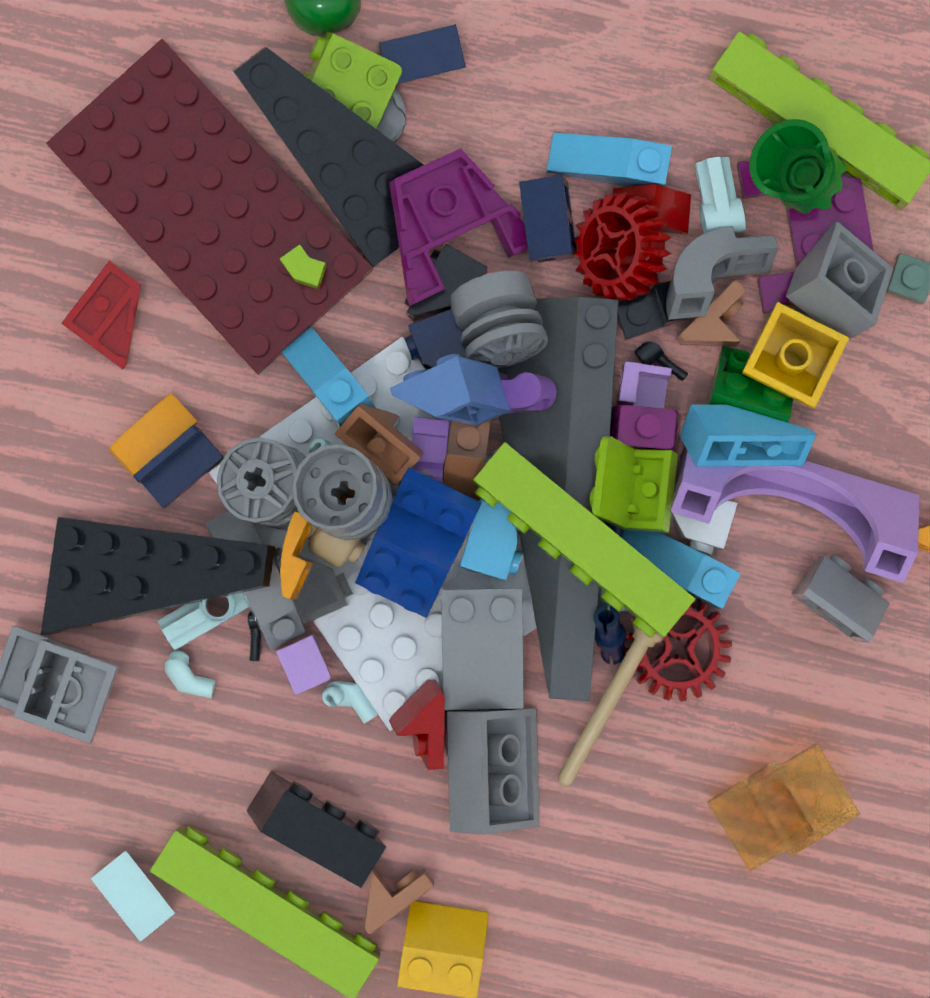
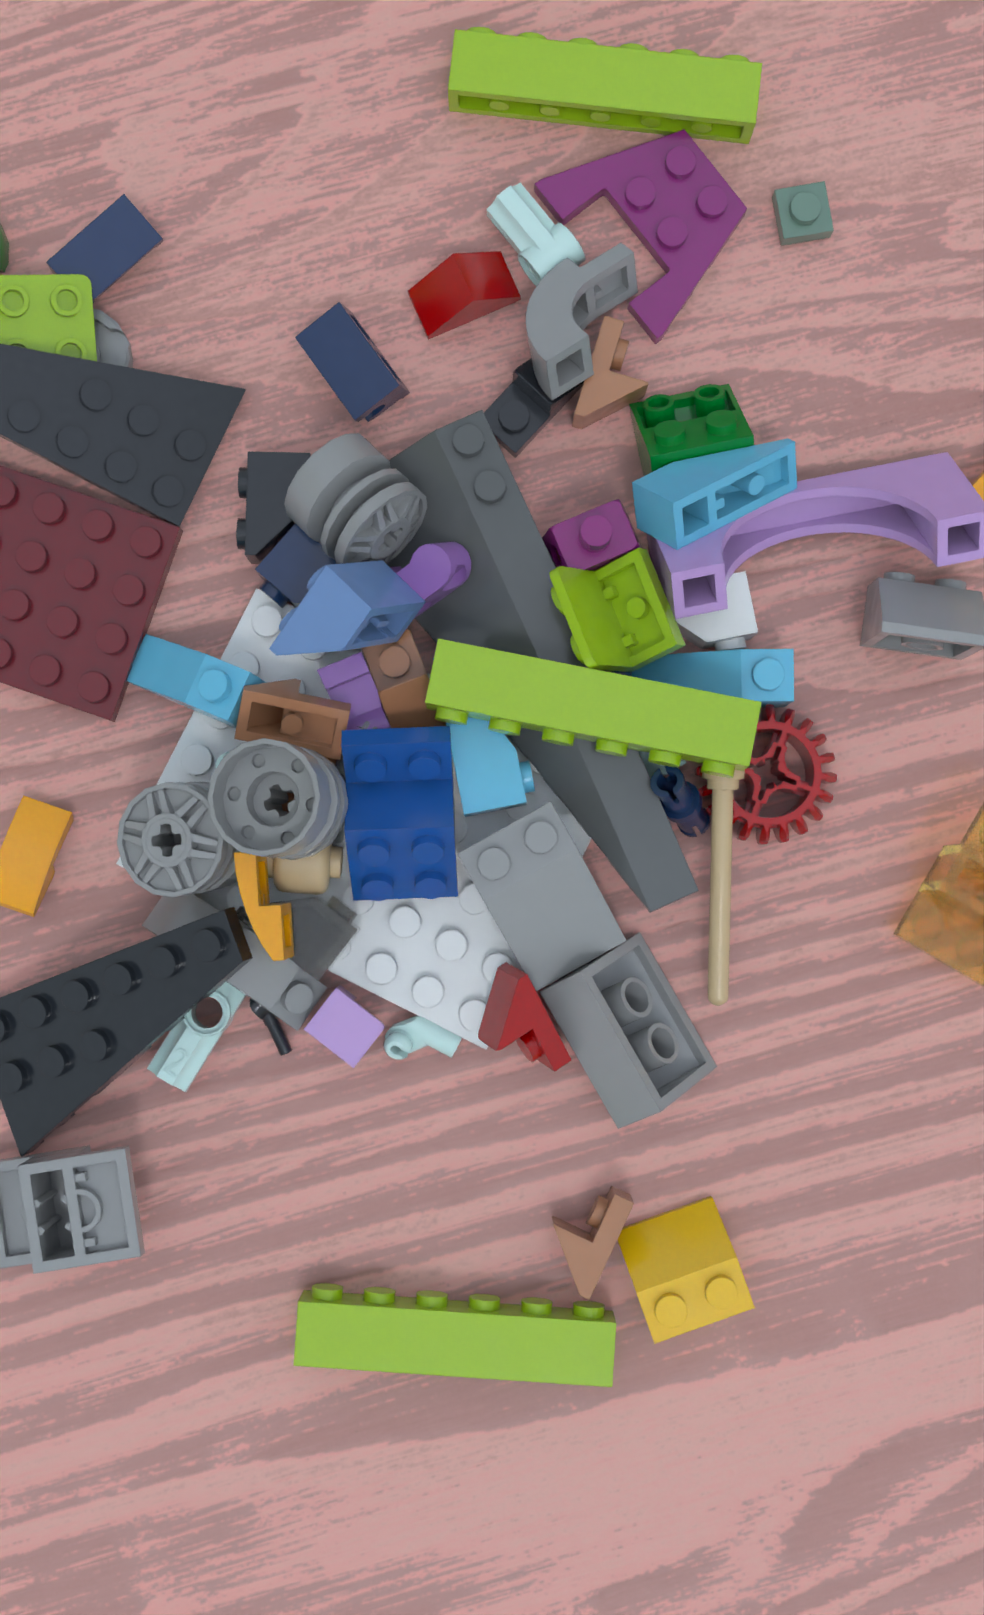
camera: 30 degrees left, 0 degrees up
(132, 896) = (289, 1404): light aqua hinge -> none
(179, 466) = (76, 876): dark blue panel -> none
(183, 678) = (215, 1118): light aqua arm -> none
(304, 269) = (98, 568): lime piece -> none
(316, 829) = (461, 1210): black wedge -> none
(443, 203) = (218, 409): magenta wing -> none
(609, 159) = (386, 257): medium azure slope -> none
(631, 251) = (467, 344): red gear -> none
(643, 385) = (561, 493): lavender panel -> none
(651, 352) = (553, 453): black hand -> none
(795, 355) = (720, 363): yellow slope -> none
(796, 166) = (605, 141): green hat -> none
(841, 282) = (727, 257): light grey slope -> none

